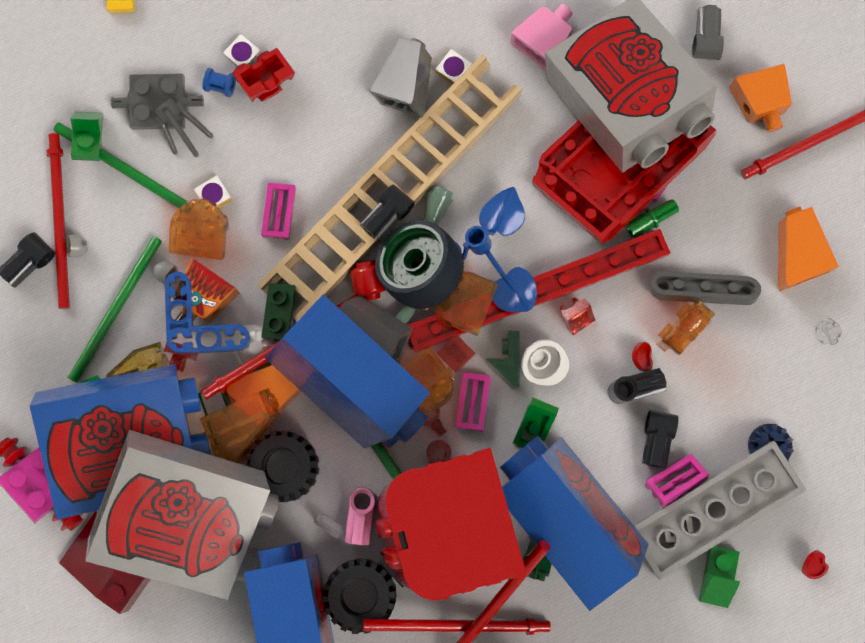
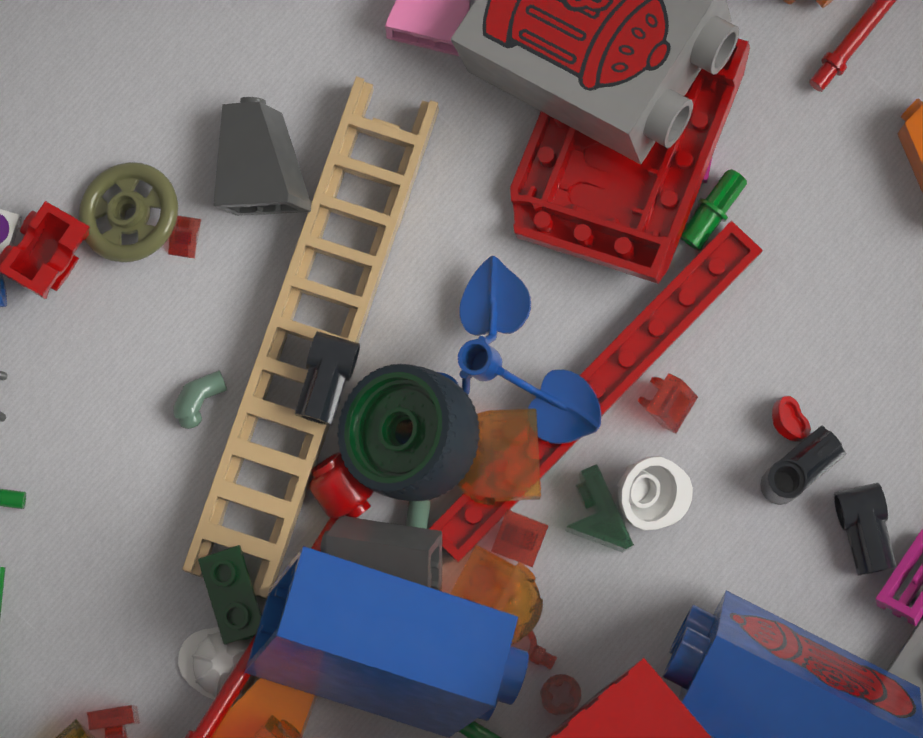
camera: 25 degrees left, 0 degrees up
(163, 269) = (32, 612): light grey hinge -> none
(186, 327) = (107, 680): blue beam -> none
(198, 230) = (54, 527): clear orange slope -> none
(209, 293) = (105, 621): torso -> none
(213, 191) = (49, 463): tile -> none
(276, 233) = (170, 479): dark pink tile -> none
(310, 192) = (193, 395): none -> sand green arm
(326, 94) = (149, 237): none -> olive plate
(346, 102) = (184, 237): none -> clear red piece
(437, 204) = (390, 331): sand green cone -> none
(452, 66) = (320, 113): tile -> none
(476, 378) = (585, 634): dark pink tile -> none
(535, 422) = (679, 586): green slope -> none
(687, 328) = (835, 350): clear orange slope -> none
(705, 287) = (834, 279): dark grey plate -> none

